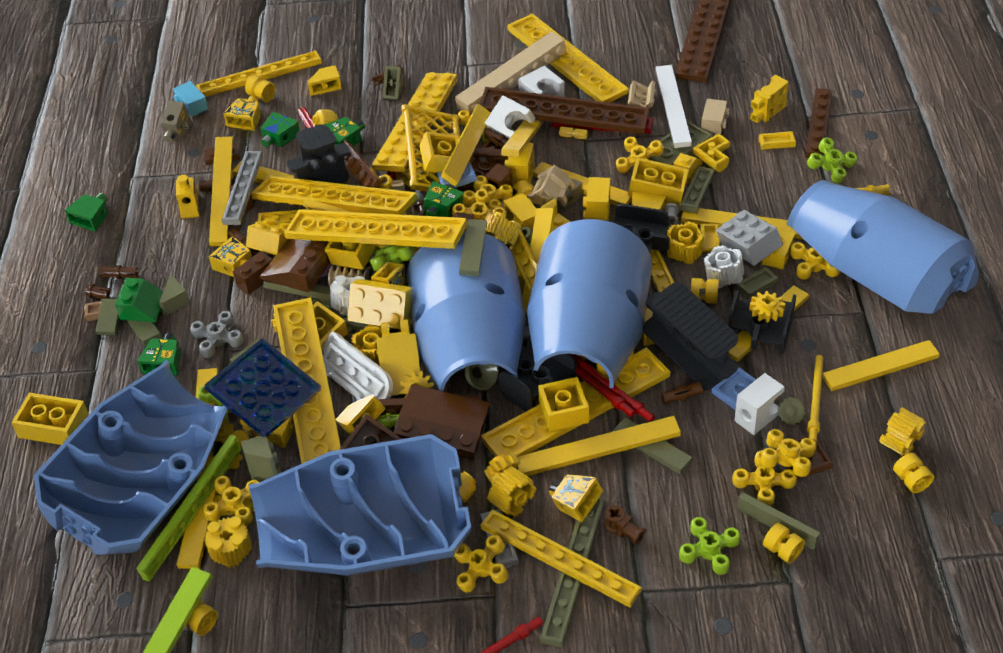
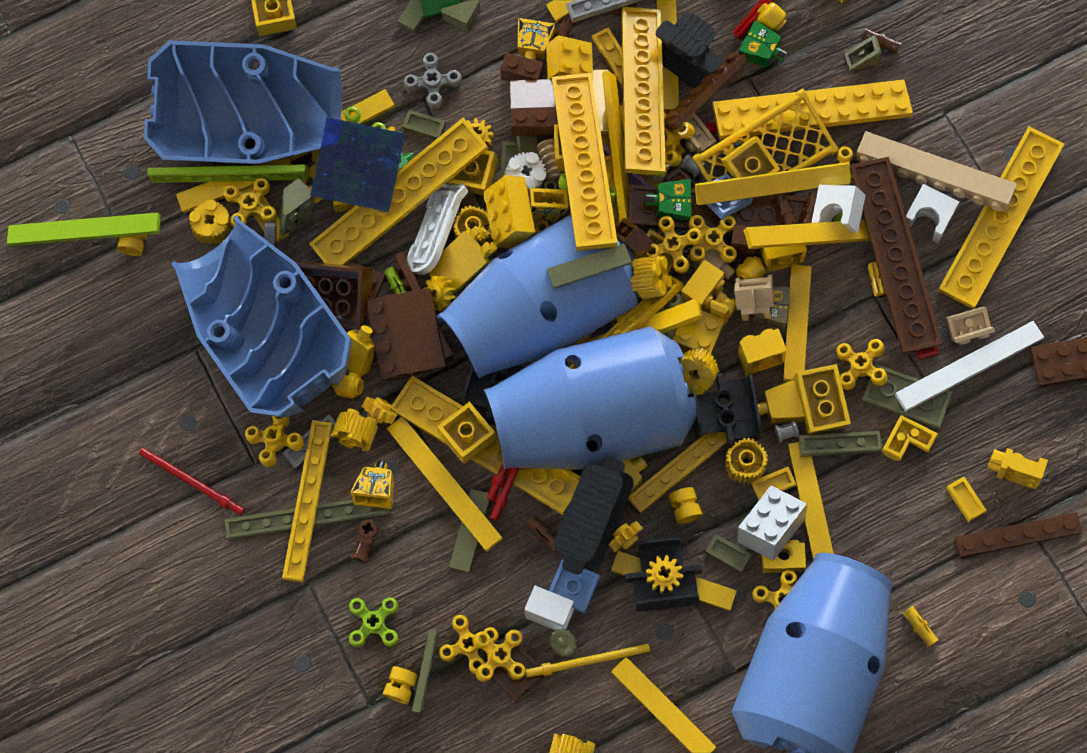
camera: 65 degrees right, 25 degrees up
(158, 351) = (386, 48): green torso -> none
(355, 412) = (381, 260): yellow slope -> none
(688, 162) = (873, 418): yellow slope -> none
(715, 116) = (970, 418): tan brick -> none
(724, 266) = (724, 512): white brick -> none
(832, 160) = (943, 563): lime gear -> none

